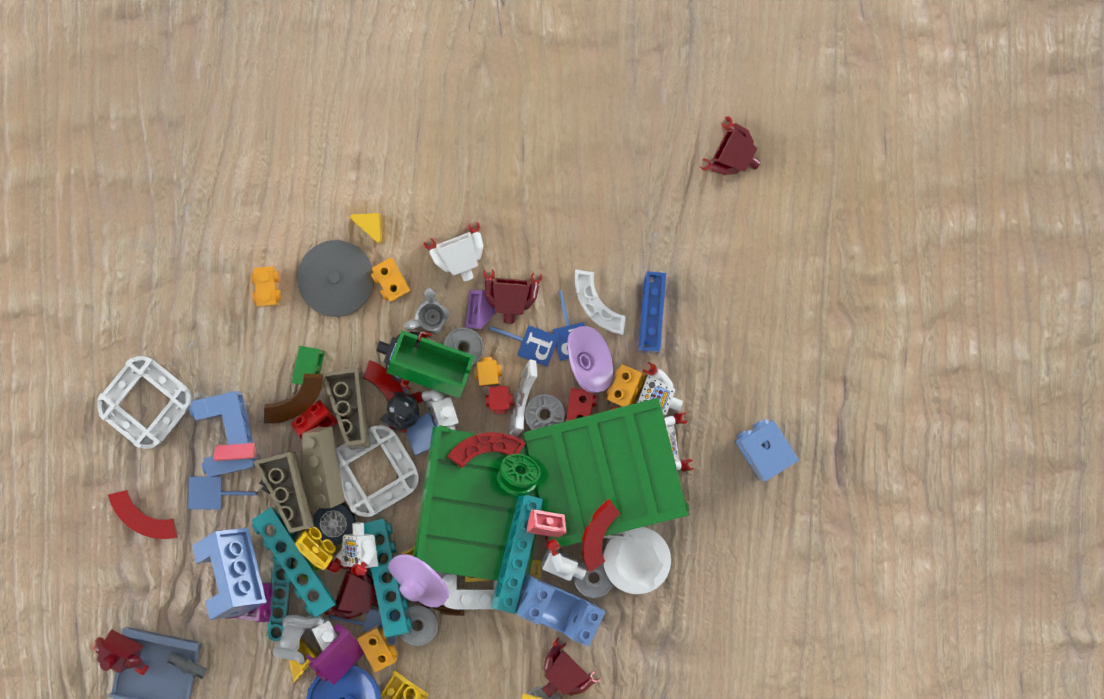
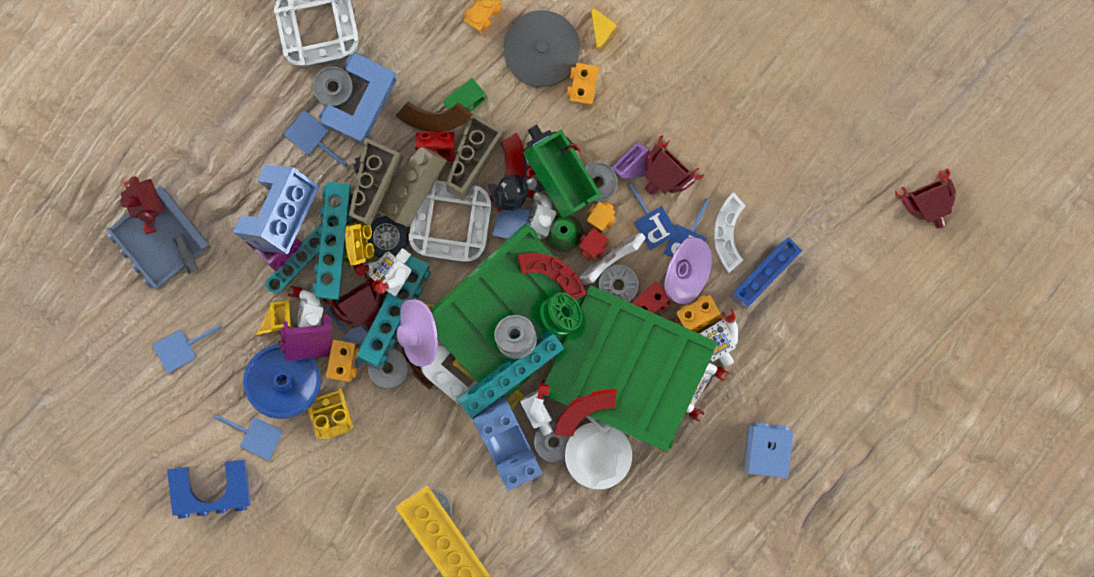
camera: 35 degrees right, 0 degrees up
(138, 521) = (238, 114): red tile -> none
(185, 438) = (333, 75): none -> light grey wheel
(234, 452) = (356, 118): coral slope -> none
(293, 630) = (289, 293): light grey hair -> none
(416, 390) = (535, 185): none -> dark grey axle
(424, 314) = (591, 130): light grey hair -> none
(459, 253) = (652, 106): white torso -> none
(478, 408) = (567, 241): none -> green cone
(507, 526) = (513, 326): none -> light grey wheel
(546, 523) = (551, 369): coral slope -> none
(565, 673) = (471, 497): dark red torso -> none

